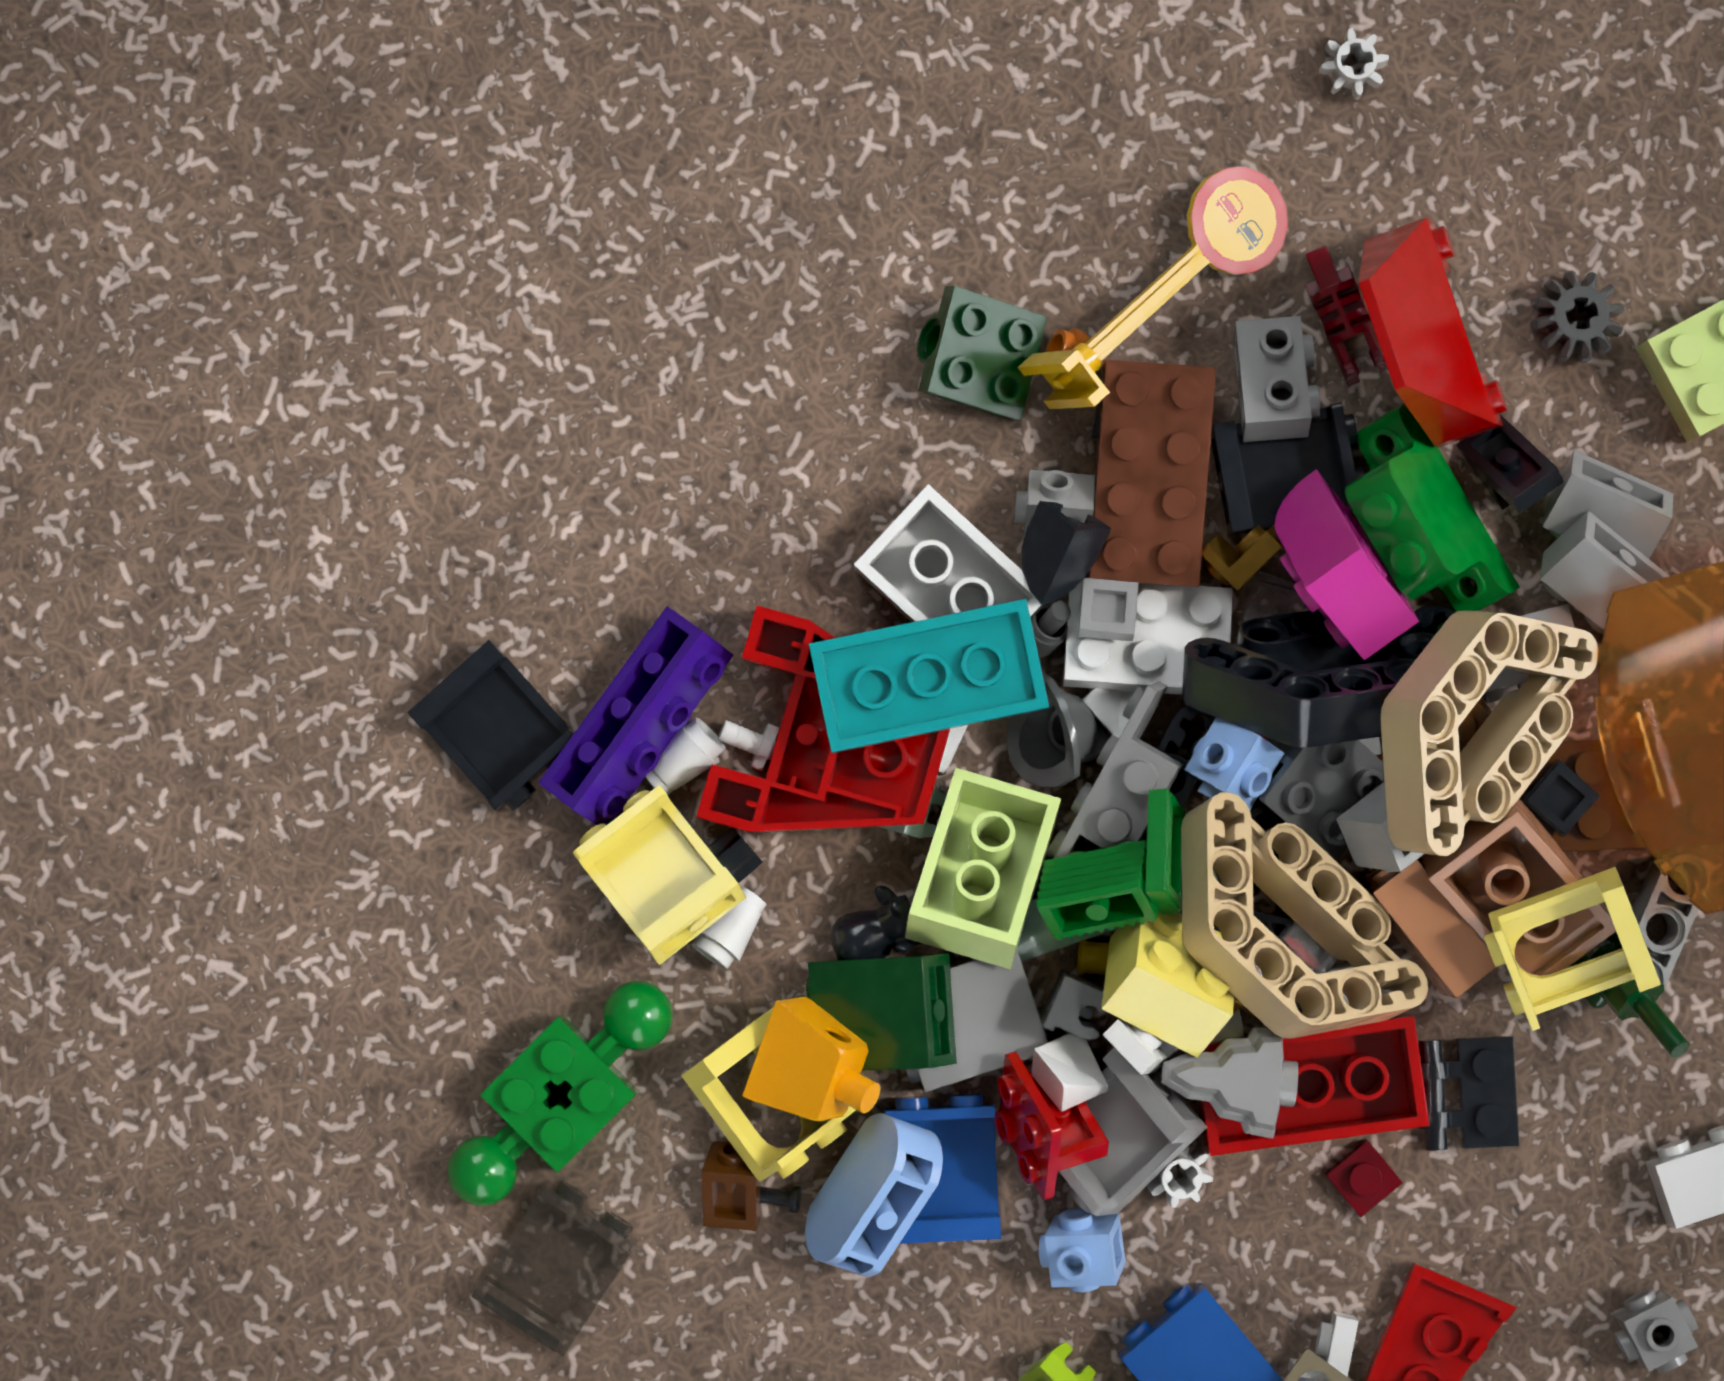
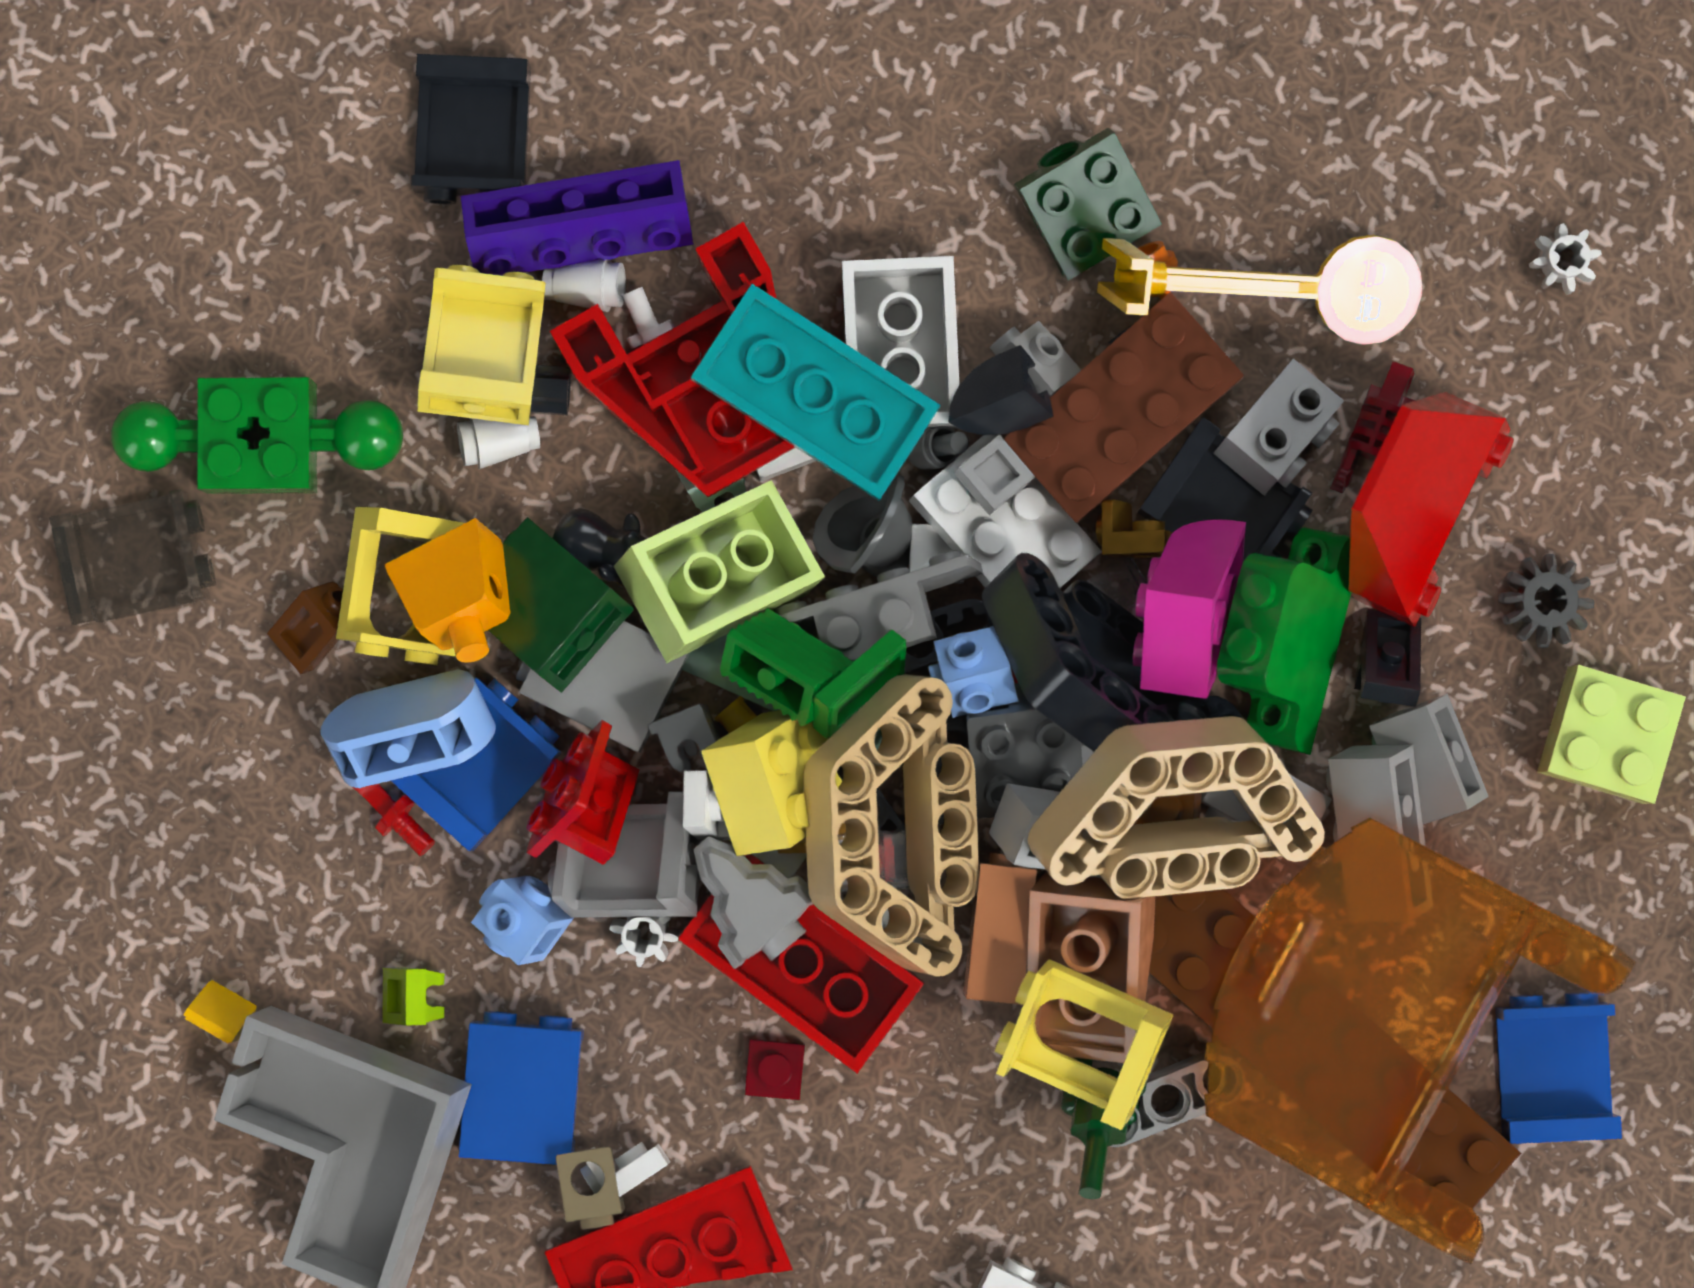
camera: 35 degrees right, 0 degrees up
(782, 1197) = (344, 671): black piece -> none
(924, 1264) = (396, 816): none -> red piece
(1068, 1071) = (636, 778): white slope -> none
(1485, 1092) = (924, 1095): black plate -> none
(1559, 798) = (1185, 930): black tile -> none

